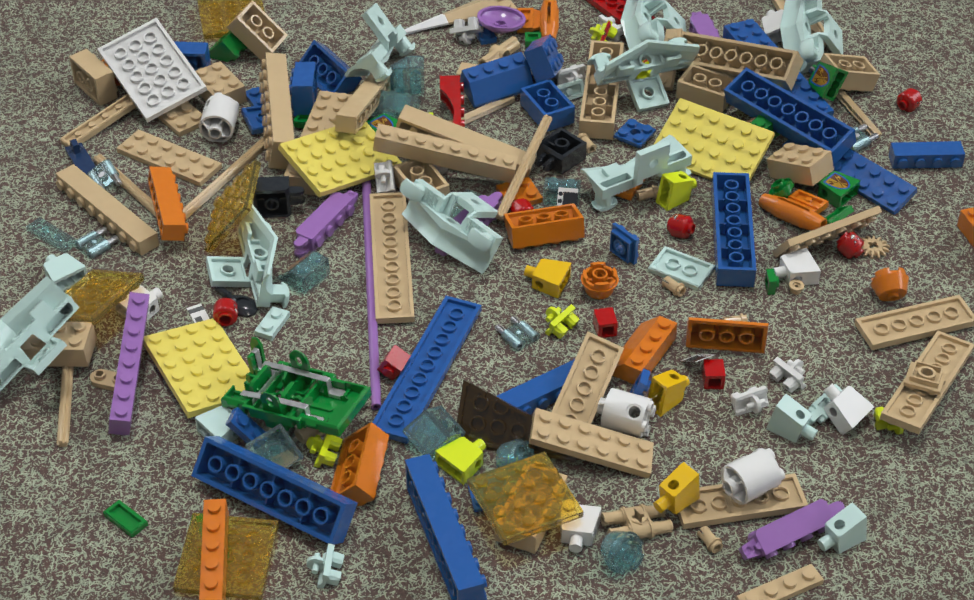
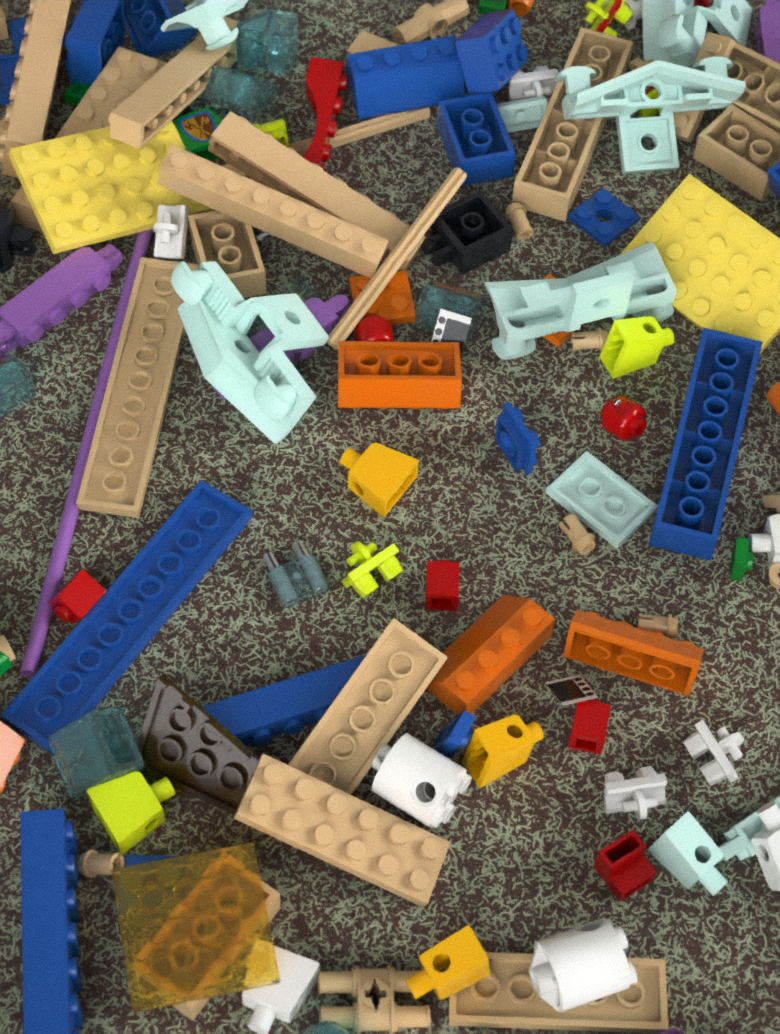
camera: 10 degrees right, 15 degrees up
(456, 486) = (94, 863): none -> tan pin
(512, 452) = (209, 827): clear light blue cone -> none
(599, 280) = (455, 502): orange cone -> none
(755, 434) = (624, 865): none -> red piece

